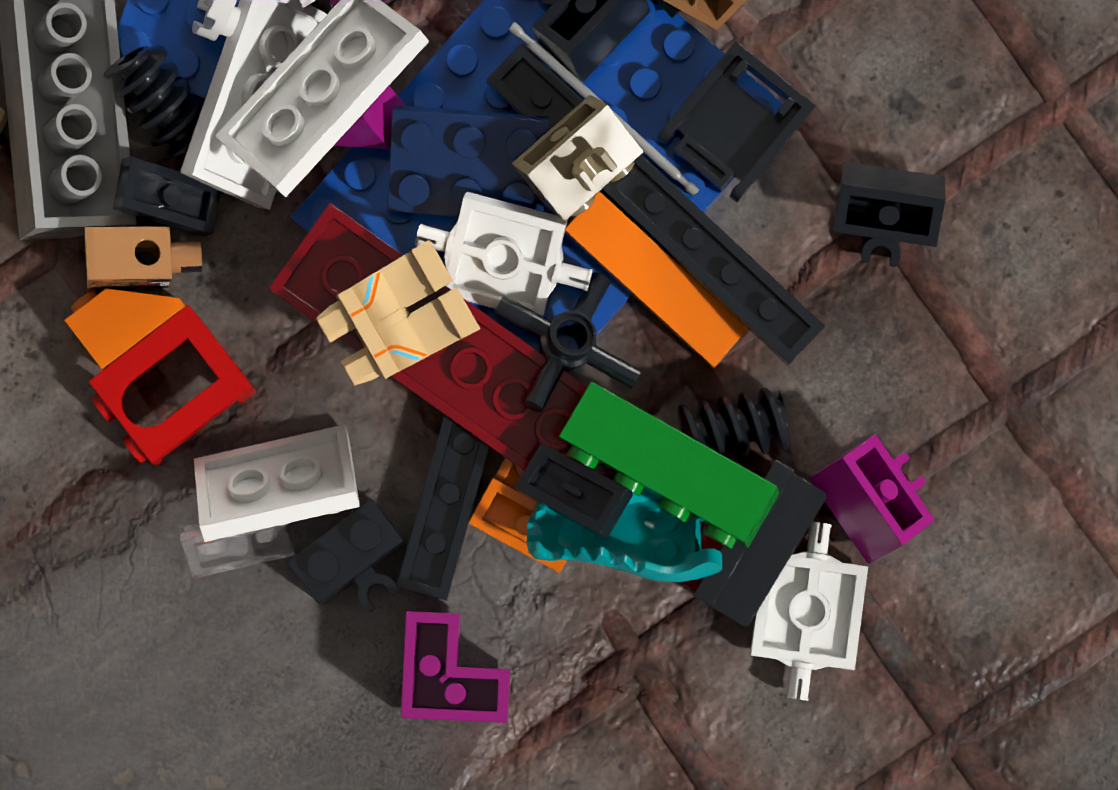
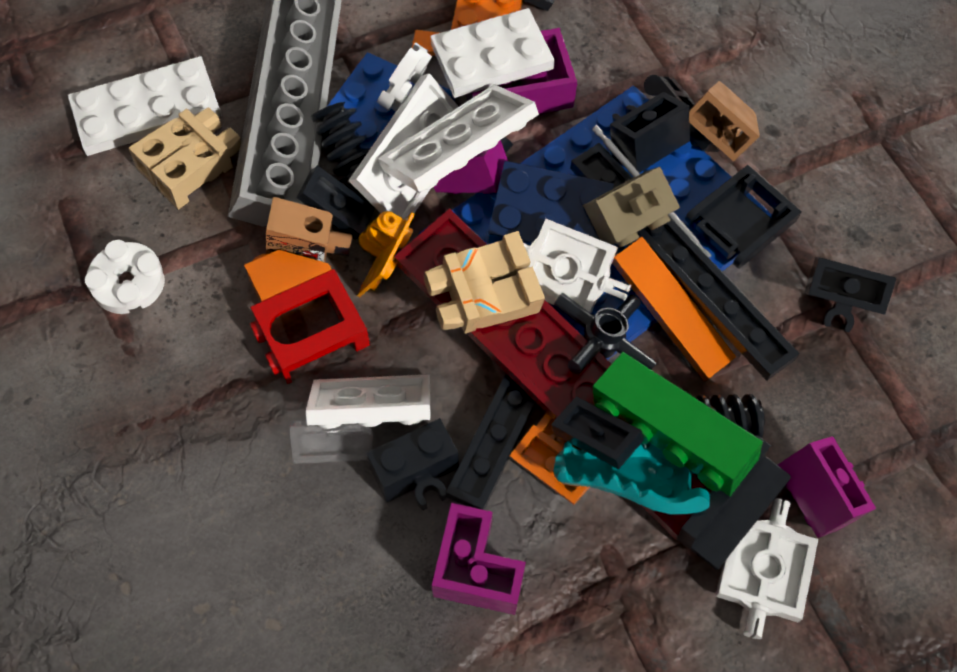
camera: 10 degrees right, 20 degrees down
(256, 249) = (382, 241): none -> light orange hinge

